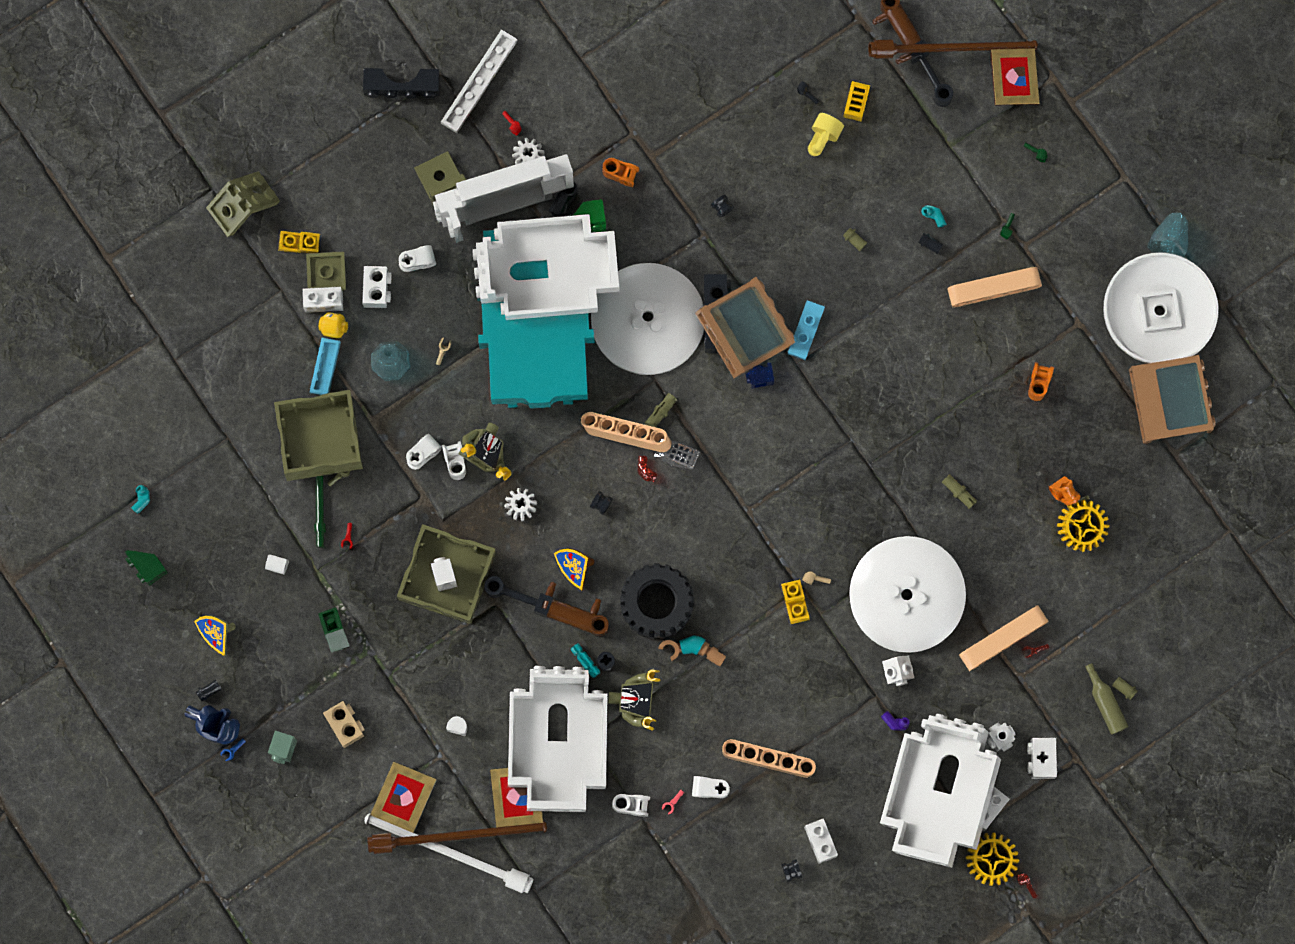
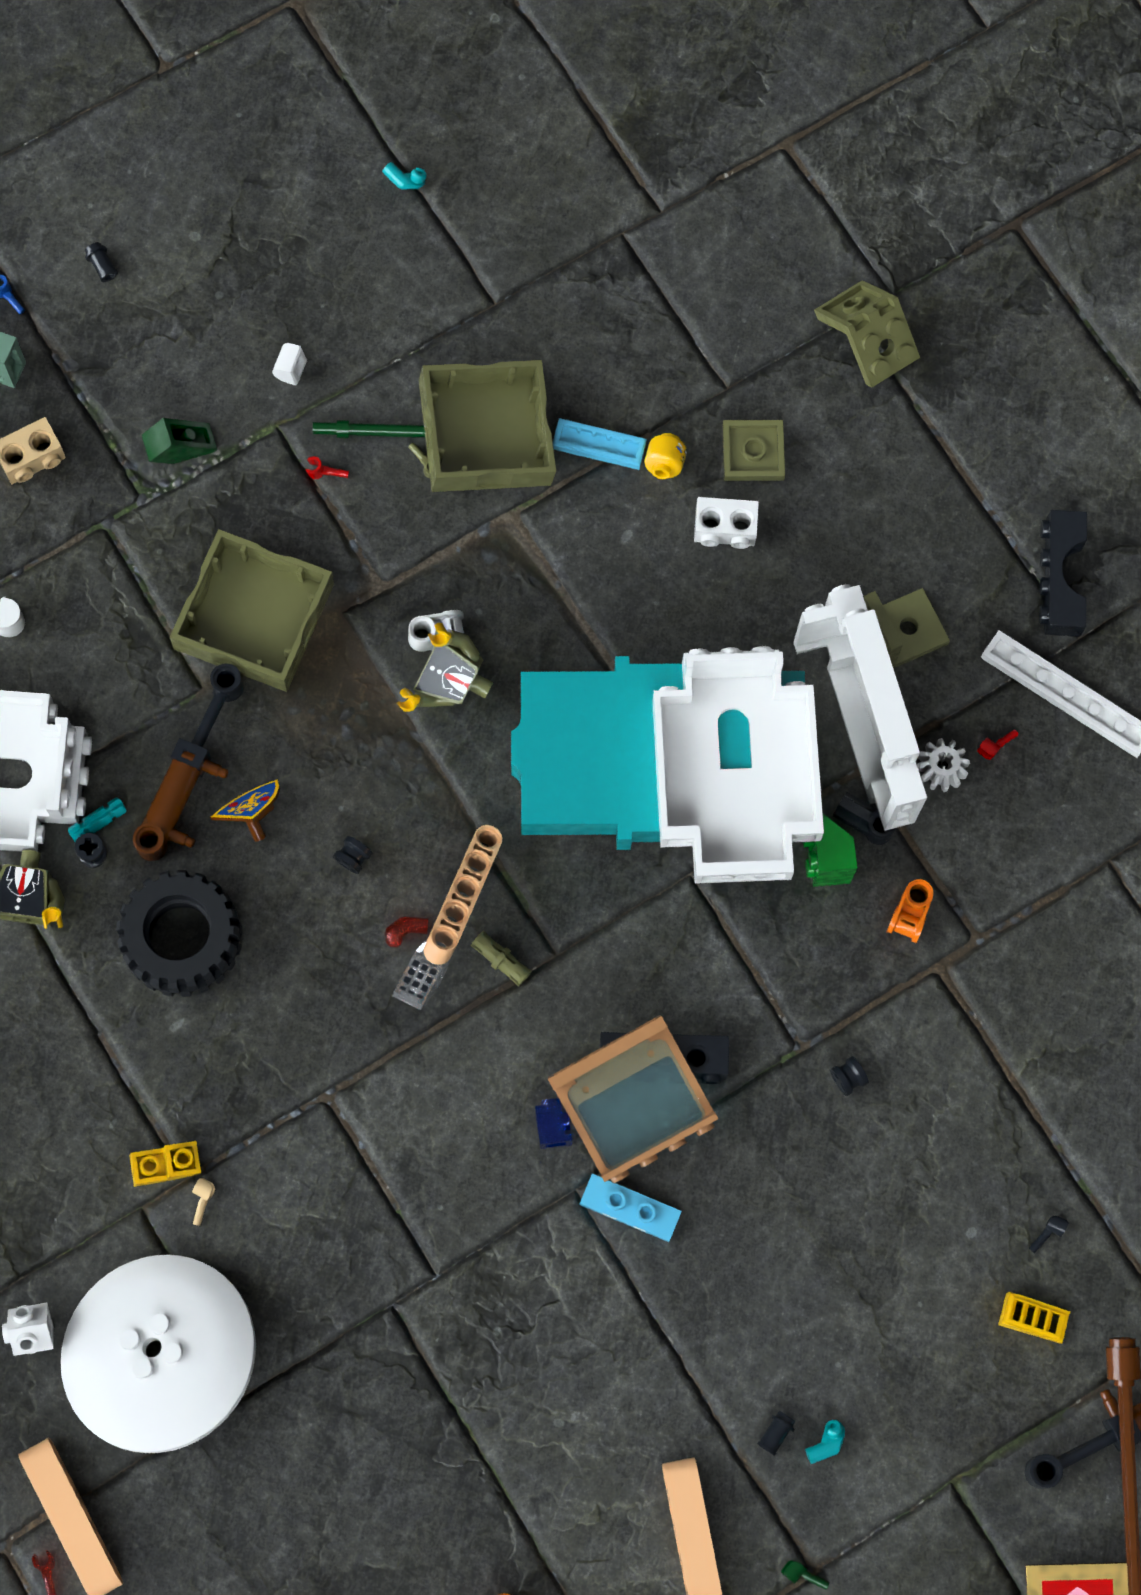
camera: 90 degrees right, 5 degrees down
(147, 564) = (300, 179): dark green slope -> none
(214, 724) = (45, 264): dark blue piece -> none
(215, 632) = (191, 272): shield -> none
(299, 242) = (803, 412): yellow slope -> none
(323, 299) = (707, 441): white brick -> none
(390, 360) = (606, 542): clear light blue cone -> none
(419, 259) = (771, 590): white piece -> none
(425, 450) = (457, 586): white piece -> none
(443, 349) = (622, 621): tan hand -> none
(443, 574) = (248, 600): white brick -> none
(517, 498) = (357, 717): white gear -> none
(651, 345) = (631, 980): white dish -> none
(695, 645) = (105, 989): piece -> none
(826, 128) = (983, 1259): light yellow piece -> none
(854, 239) = (787, 1300): olive pin -> none
(959, 491) = (334, 1457): olive pin -> none

